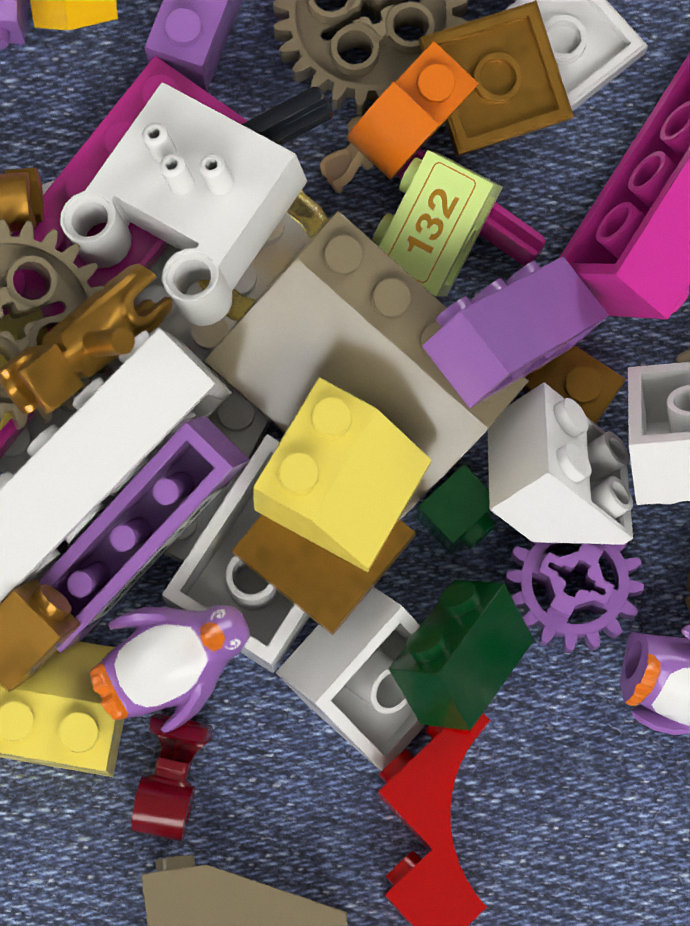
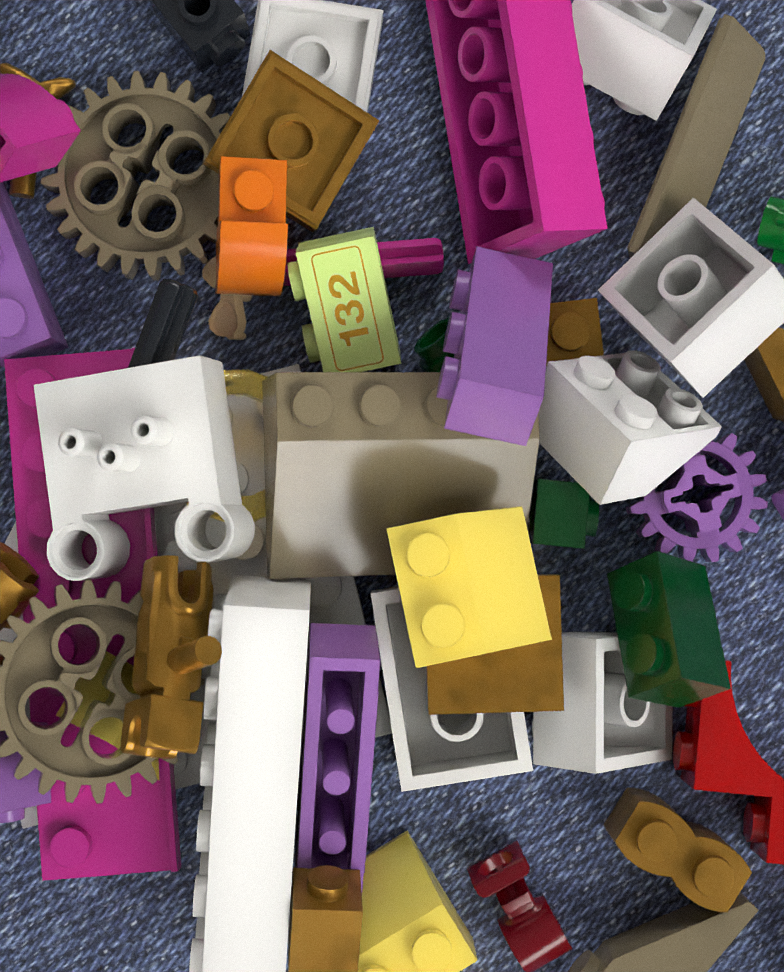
camera: 40 degrees left, 10 degrees up
(168, 661) = (453, 842): animal -> none
(321, 814) = (685, 851): none -> pearl gold brick

